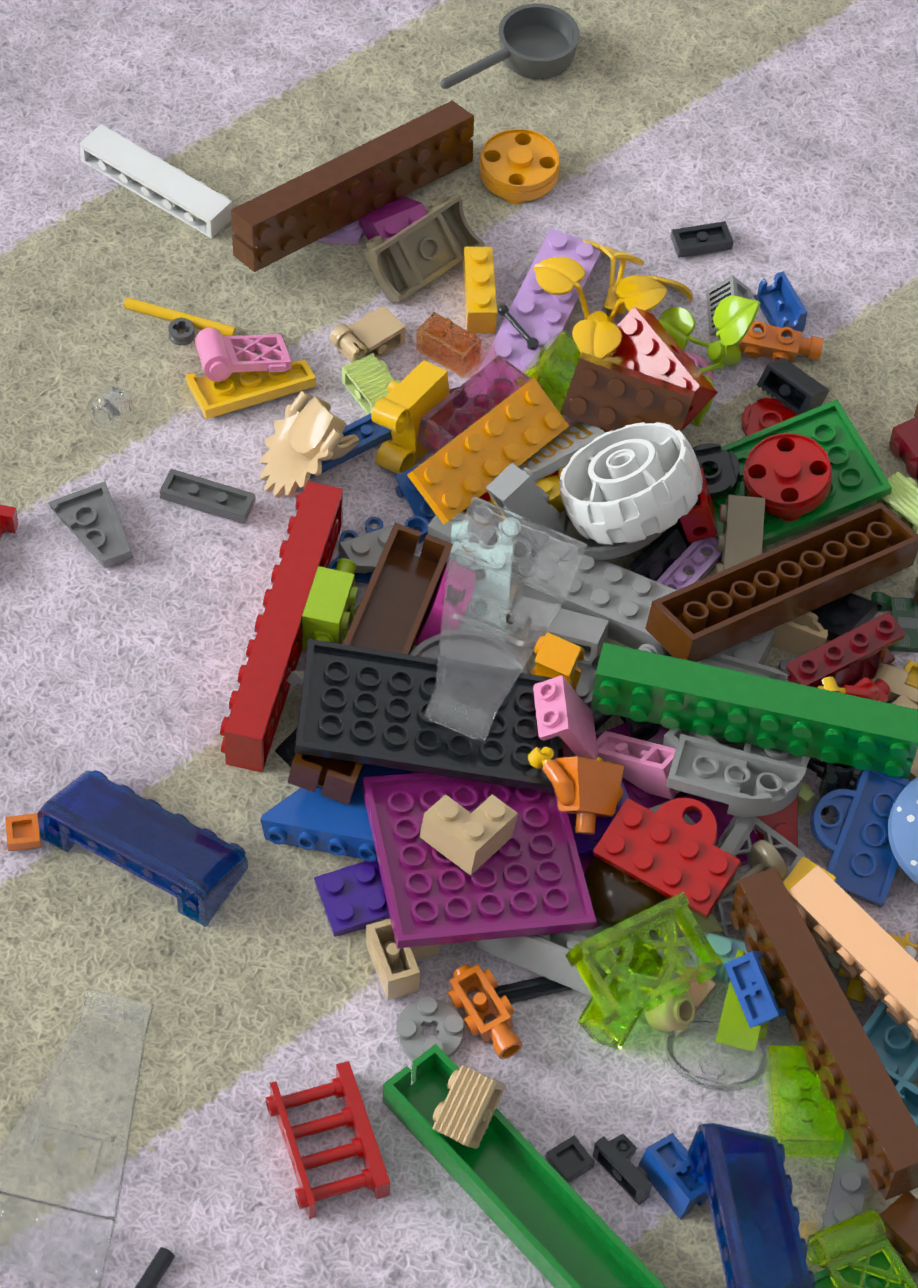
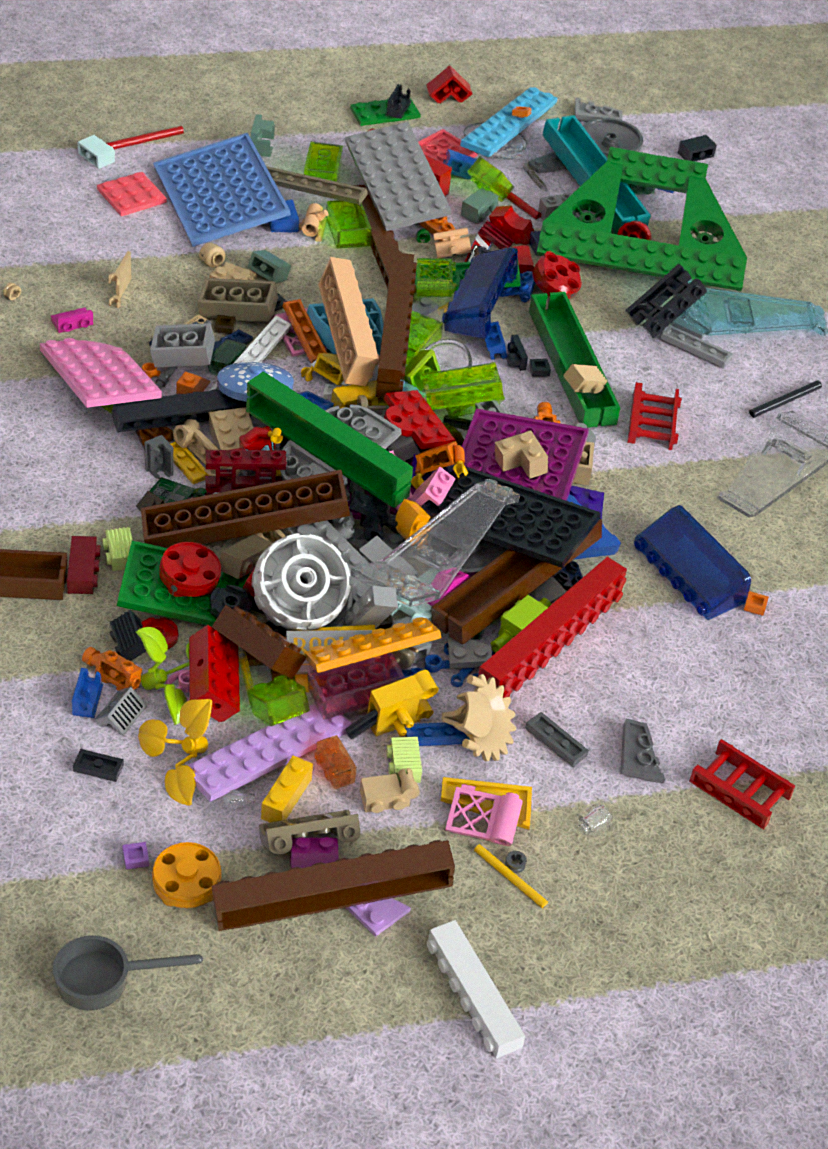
camera: 155 degrees left, 10 degrees down
(532, 343) = (282, 727): black hinge -> none
(586, 168) = (135, 855): none -> medium lavender plate
(597, 332) = (238, 742): yellow plant -> none
(753, 989) = (421, 347): blue hinge -> none

